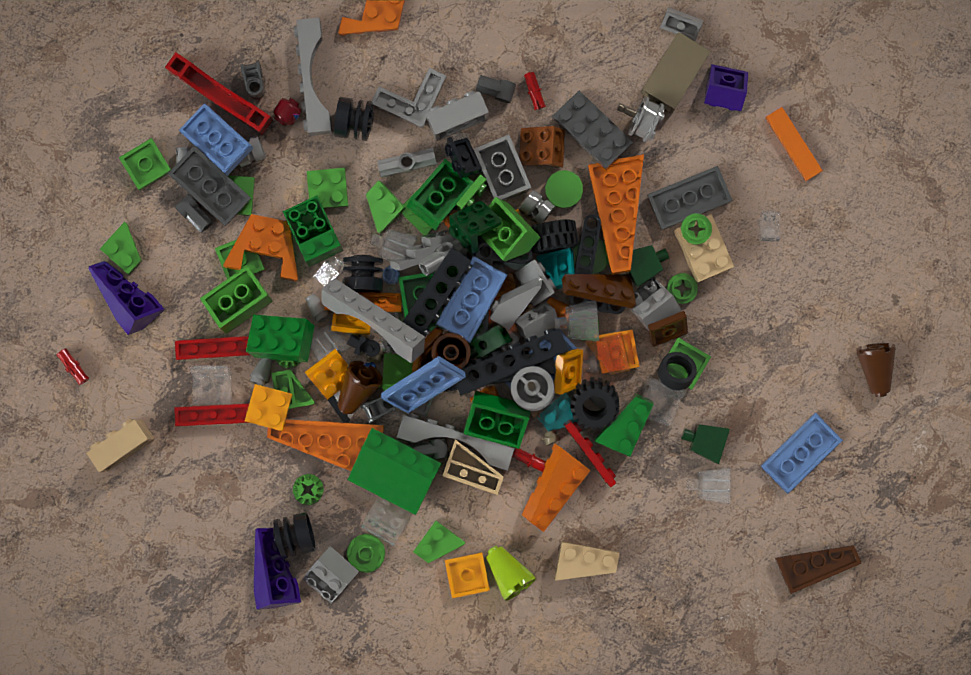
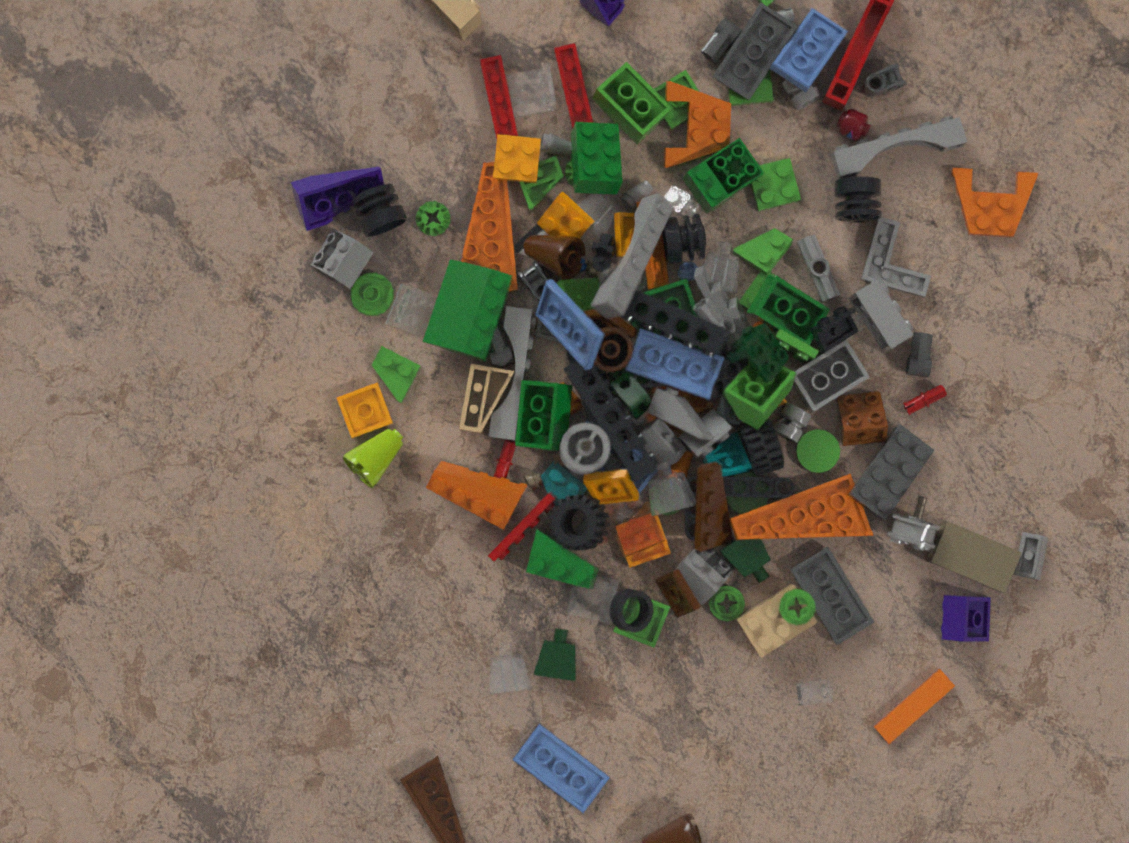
camera: 85 degrees right, 0 degrees up
(584, 561) = (401, 539): tan wedge -> none

